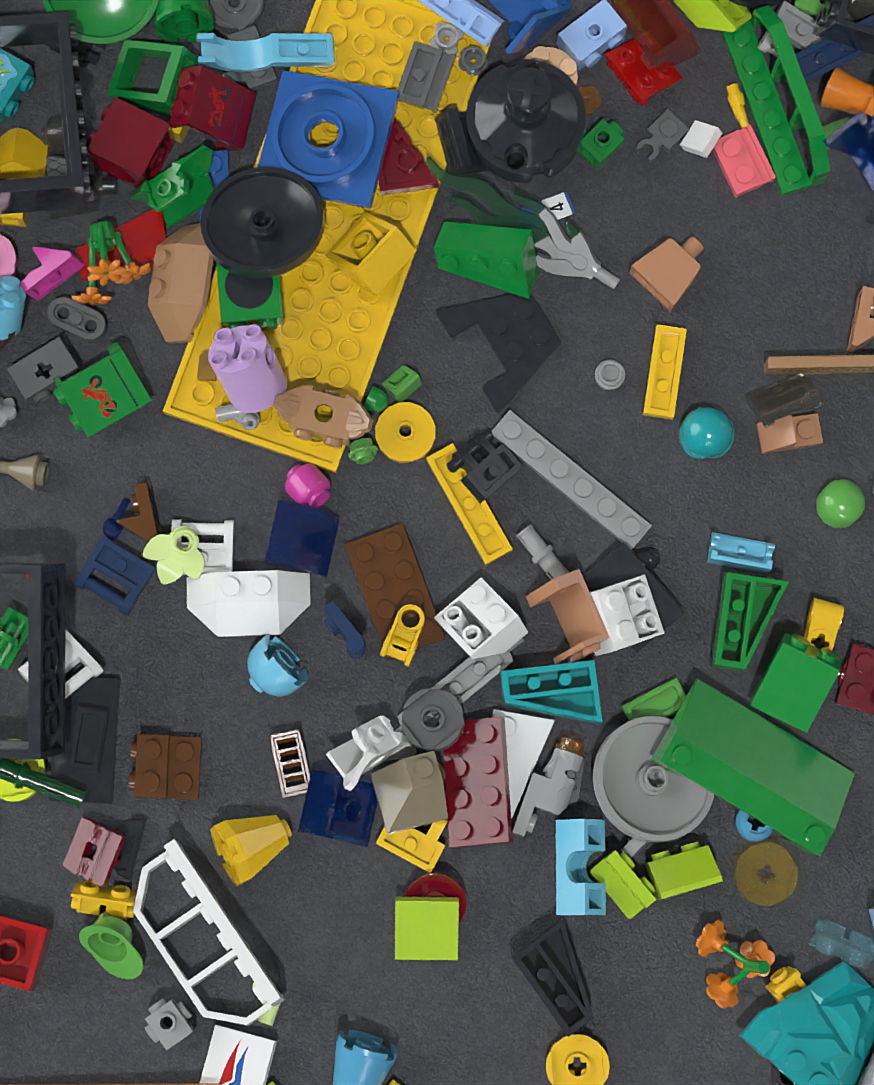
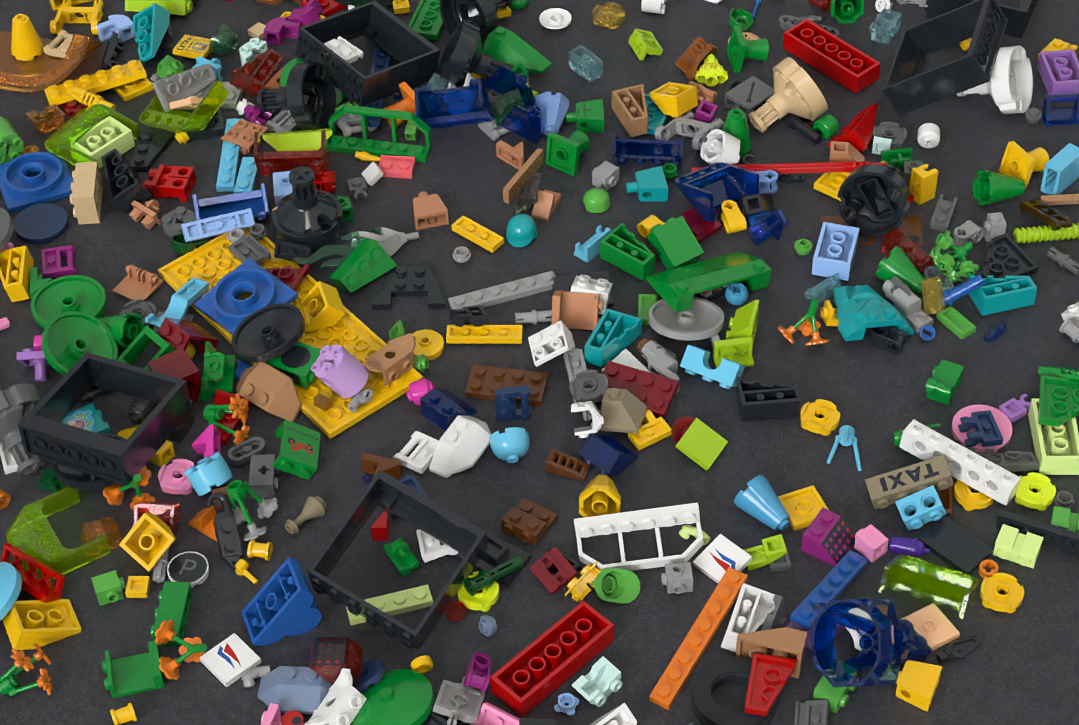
camera: 55 degrees left, 35 degrees down
(173, 559) = (414, 457): yellowish green plate -> none
(403, 636) = (534, 378): yellow piece -> none
(780, 864) = (771, 295): clear yellow plate -> none

